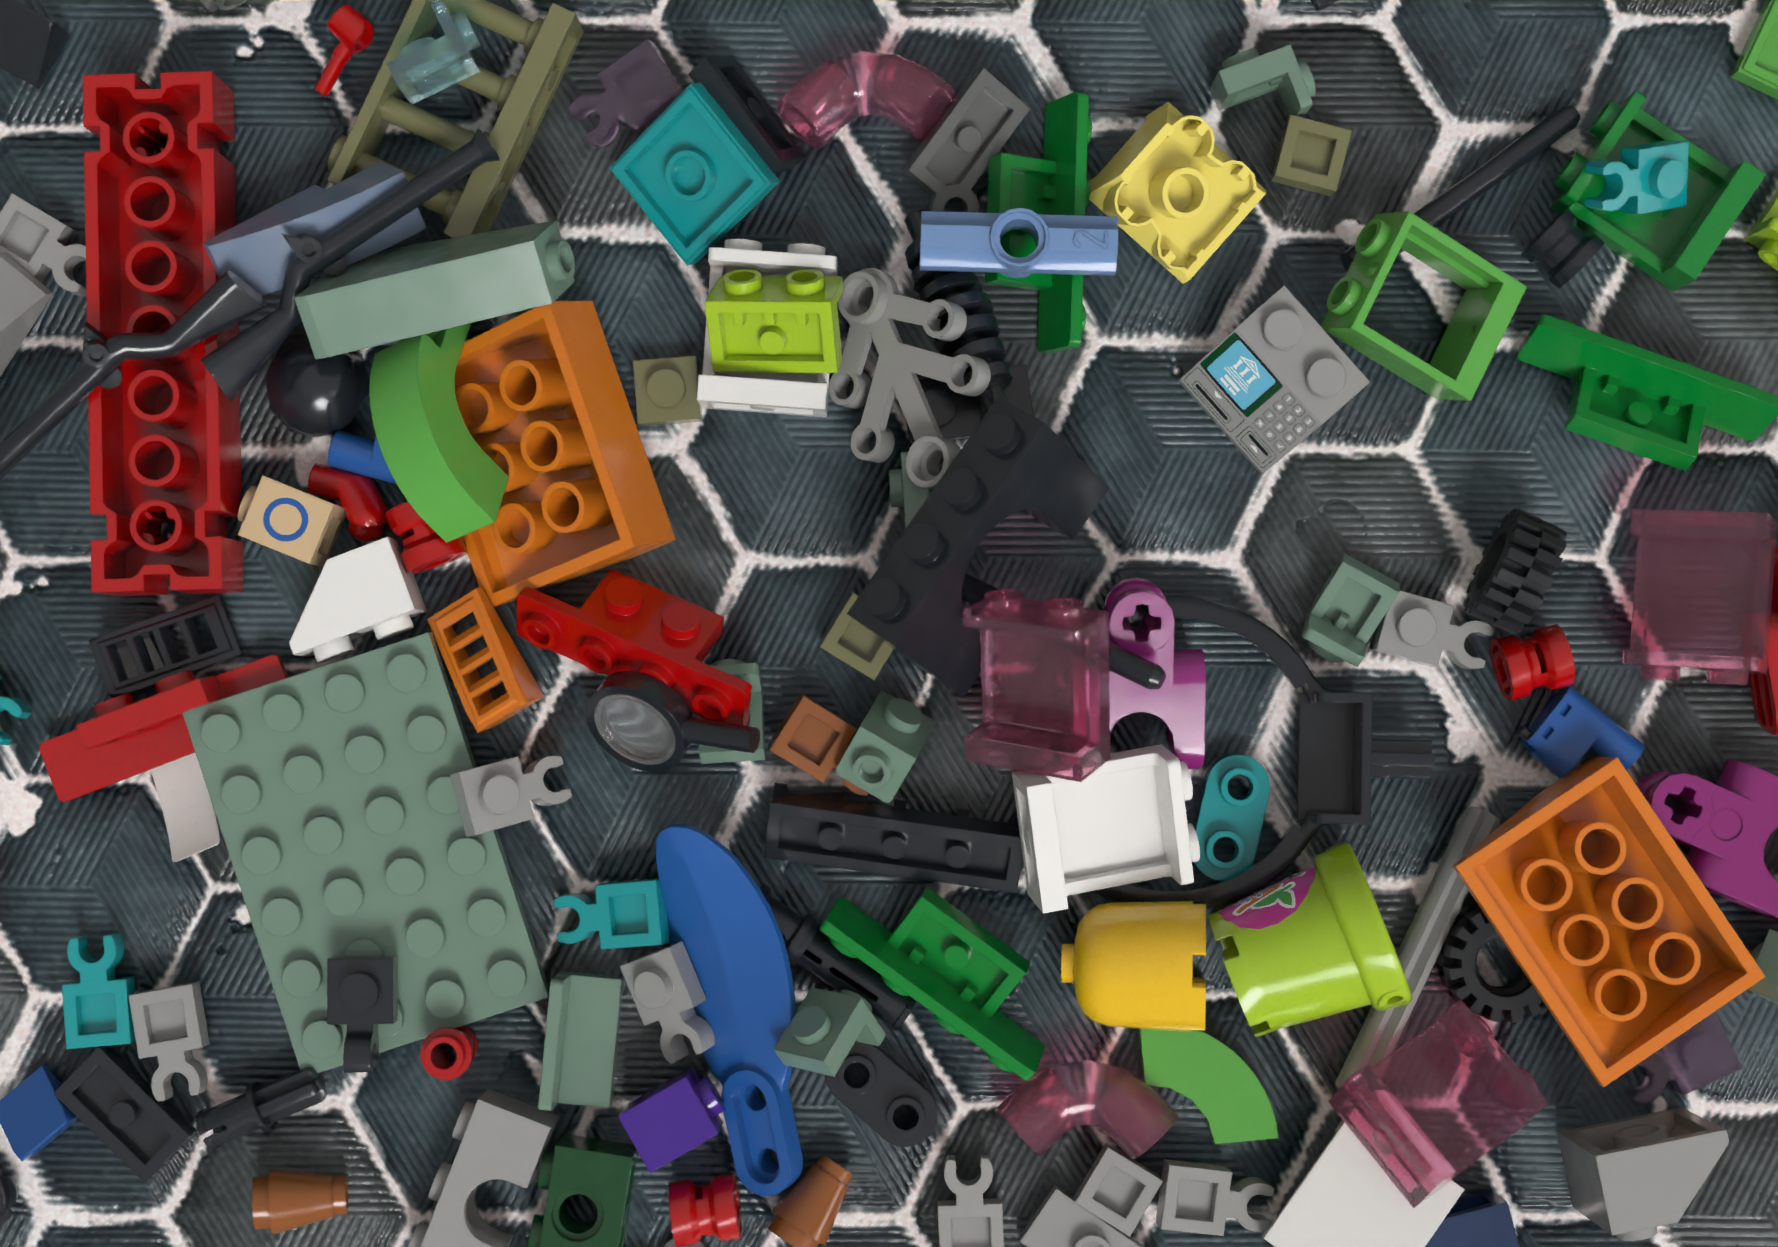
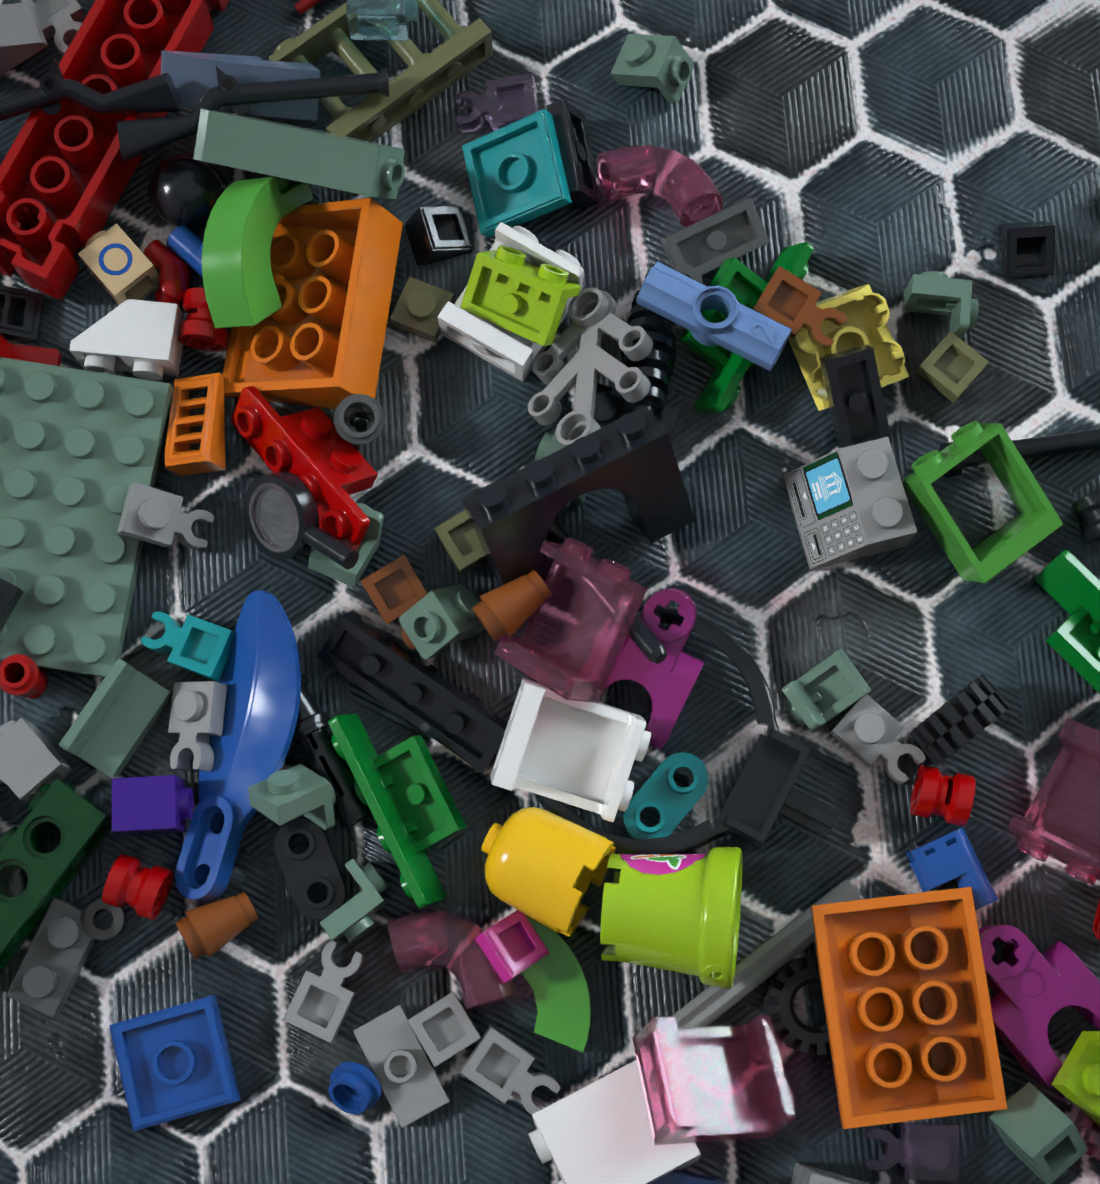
camera: 25 degrees right, 10 degrees down
(638, 290) = (438, 234): none -> black slope
(688, 579) = (355, 407): none -> dark grey cone
(959, 699) = (510, 605): none -> dark orange cone
(959, 1121) = (355, 915): none -> sand green bracket
(1101, 184) = (793, 305): none -> dark orange plate
(1149, 1069) = (512, 945): none -> dark pink tile
(1223, 254) = (855, 396): none -> black plate

